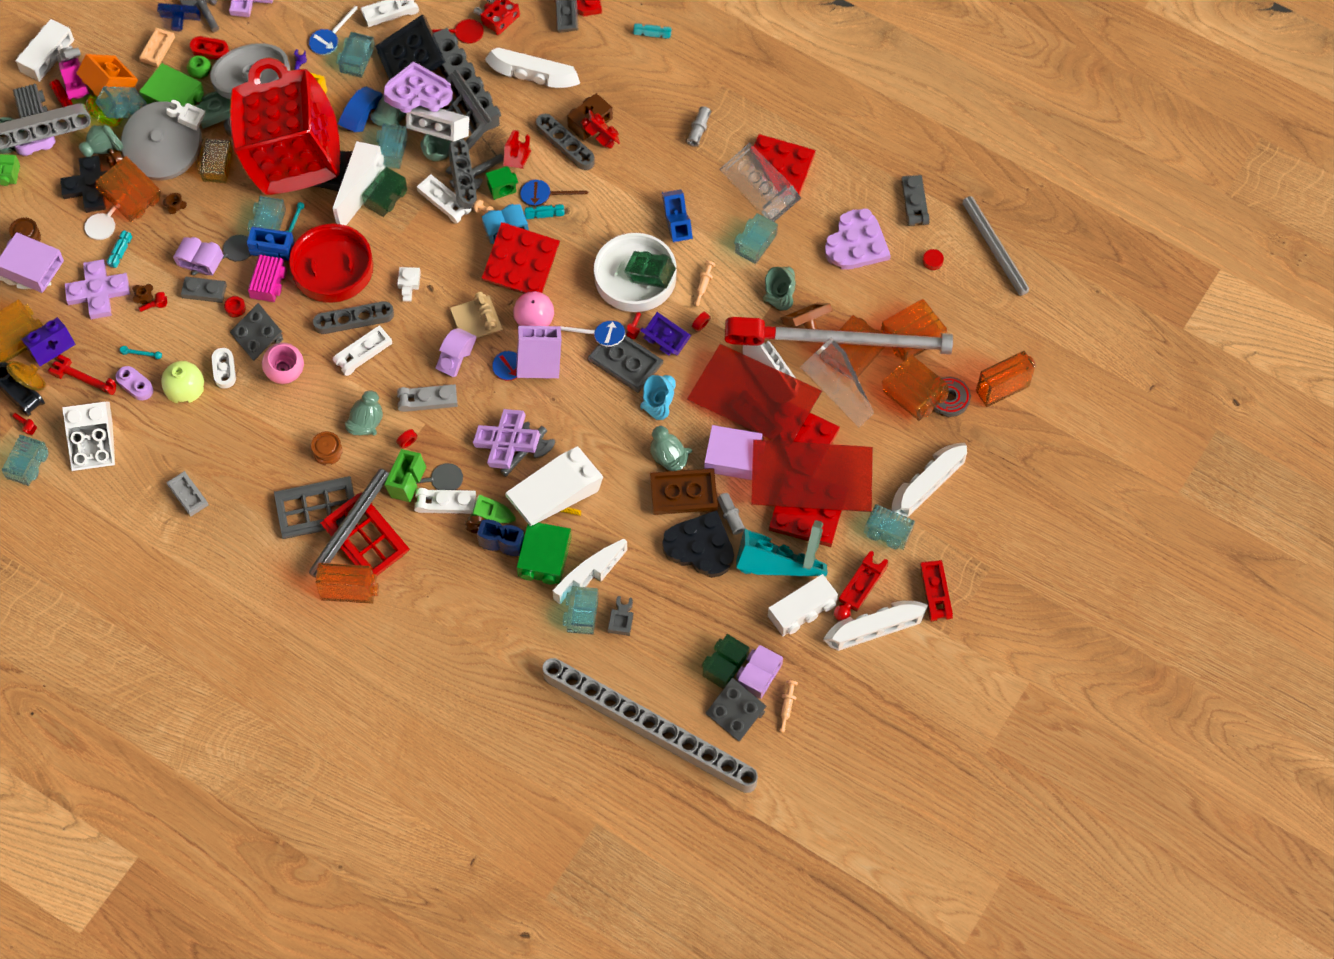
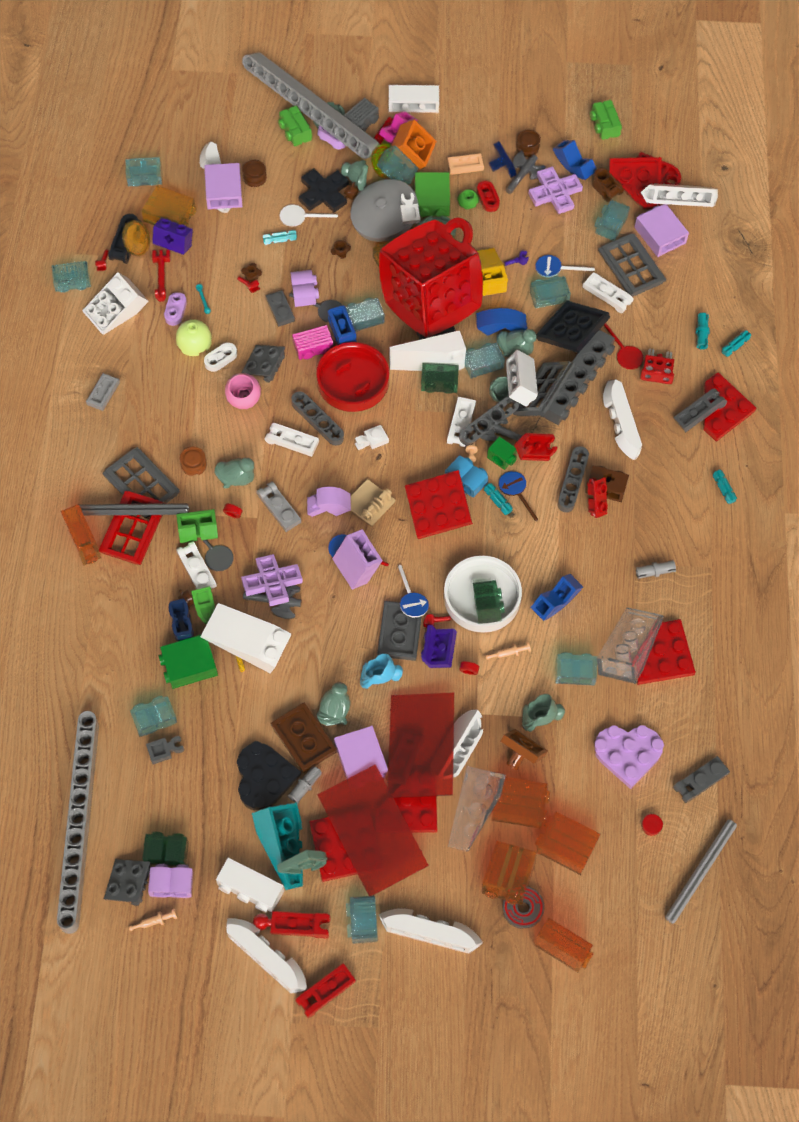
camera: 60 degrees right, 0 degrees up
(68, 53) = (415, 111): light grey hinge -> none
(97, 289) = (238, 242): lavender plate -> none
(128, 189) = (329, 213): clear orange brick -> none
(235, 65) = (492, 231): light grey dish -> none
(235, 306) = (278, 336): red tile -> none
(300, 206) = (363, 336): teal hinge -> none
(417, 87) = (538, 345): lavender plate -> none
(533, 310) = (397, 538): bright pink helmet -> none
(595, 566) = (198, 706): white slope -> none
(754, 332) = (476, 712): flat silver piece -> none

